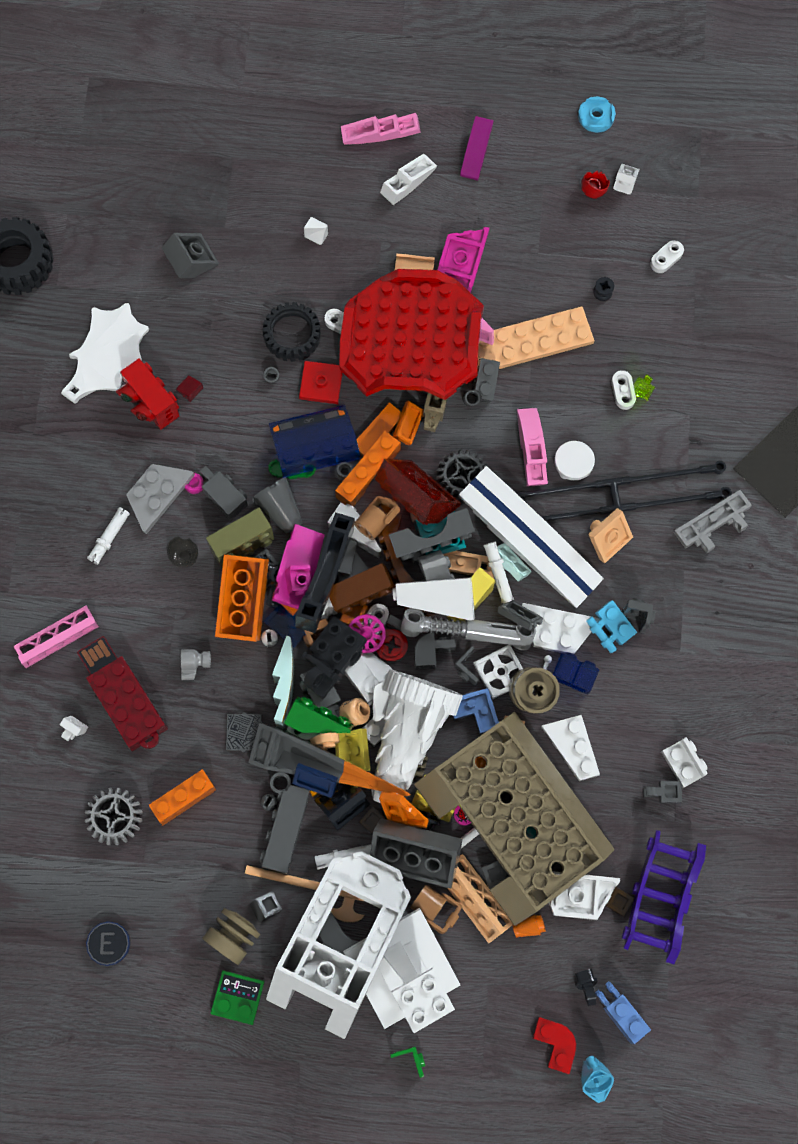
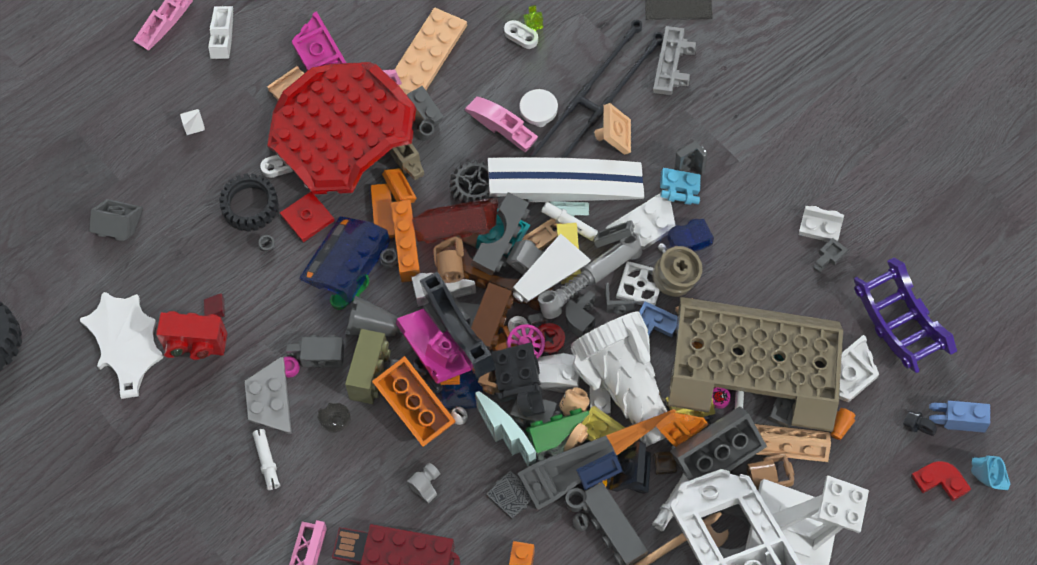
camera: 40 degrees left, 10 degrees down
(574, 745) = (740, 283): white wing -> none
(619, 902) = (880, 351): dark brown tile -> none

